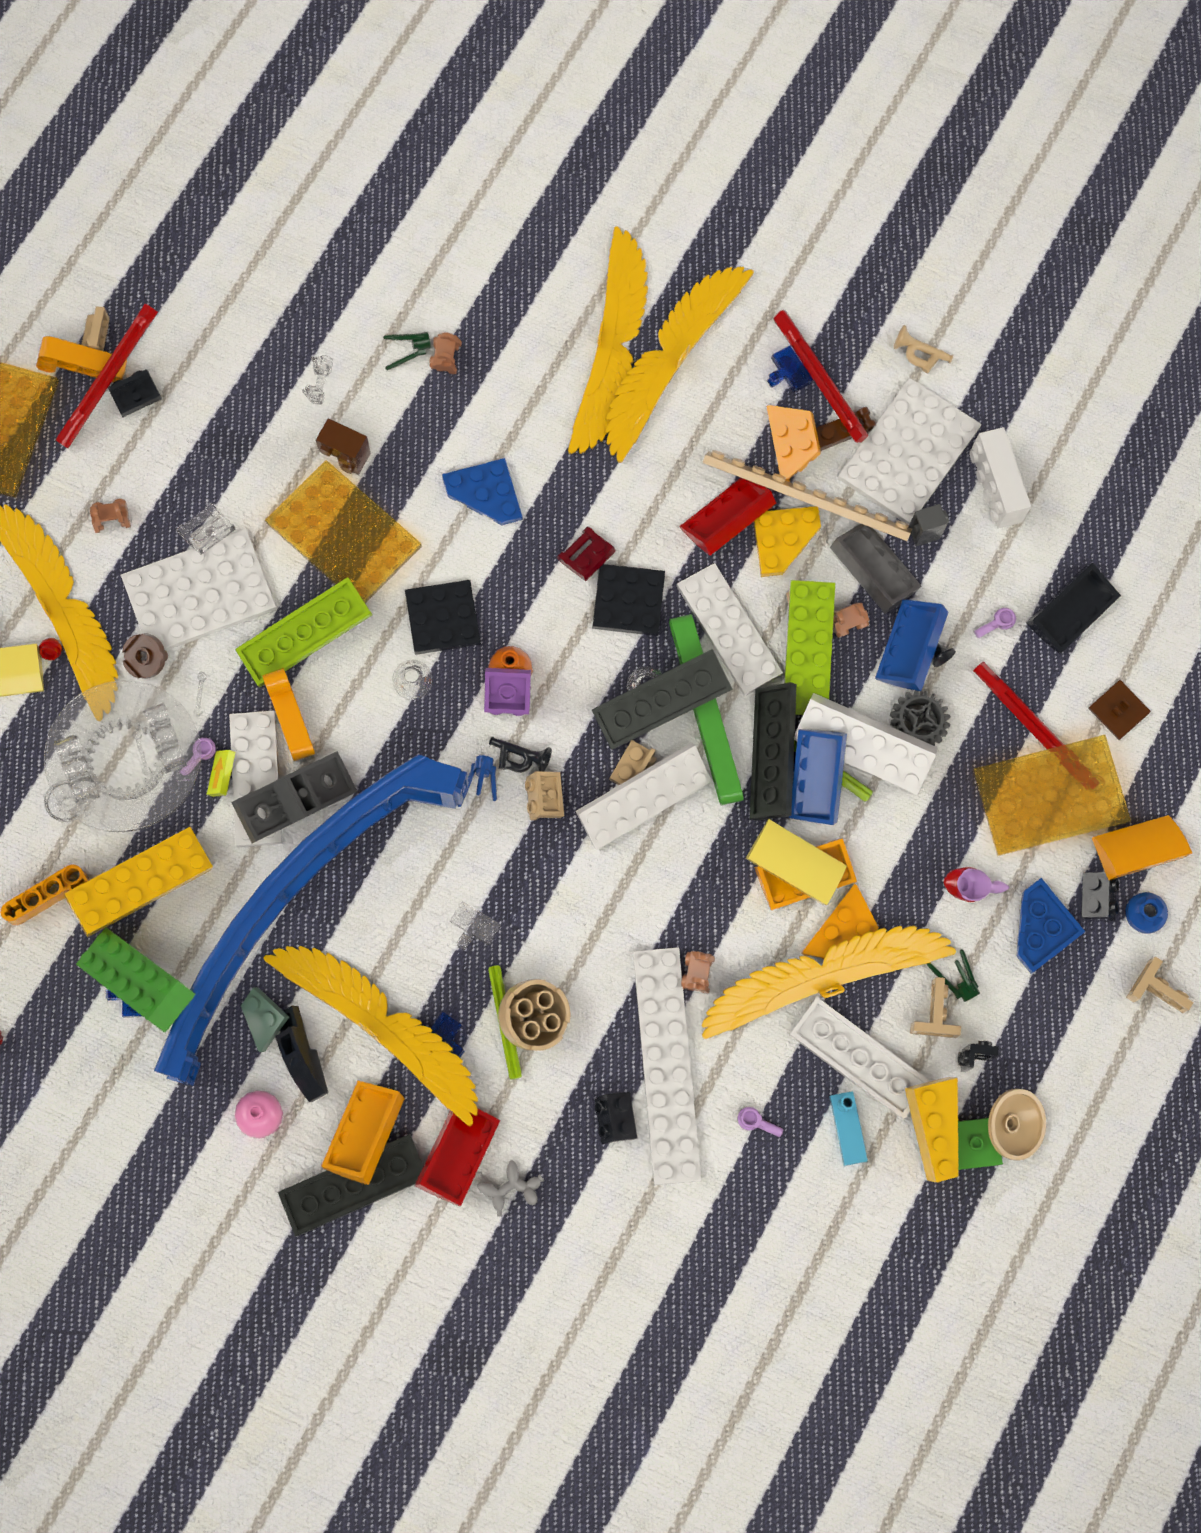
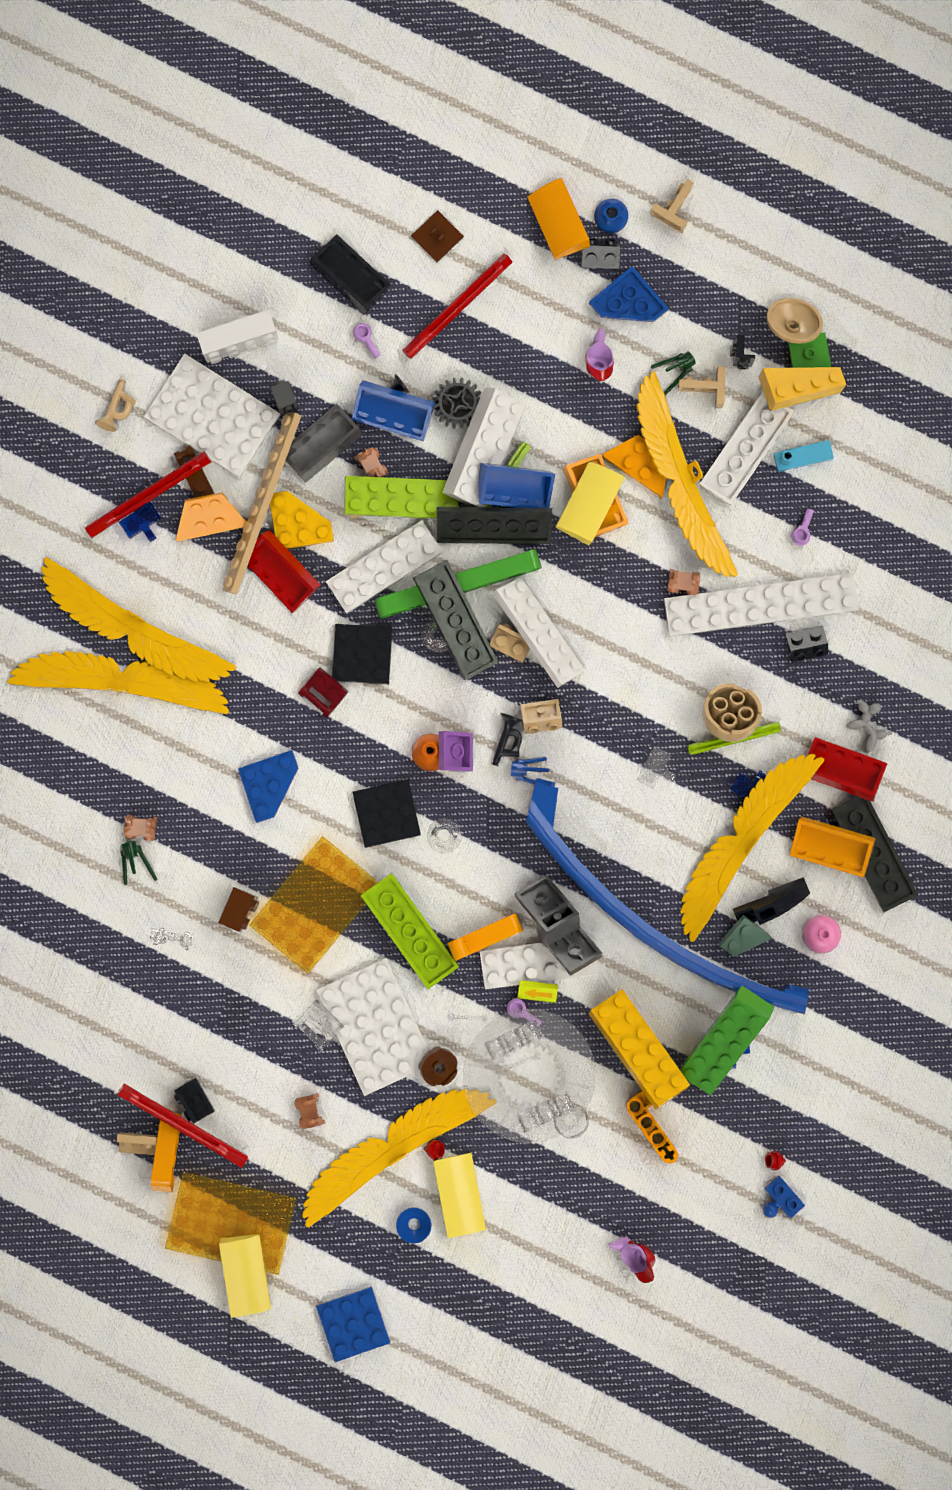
camera: 85 degrees left, 10 degrees up
(1051, 795) = (518, 293): clear yellow plate -> none

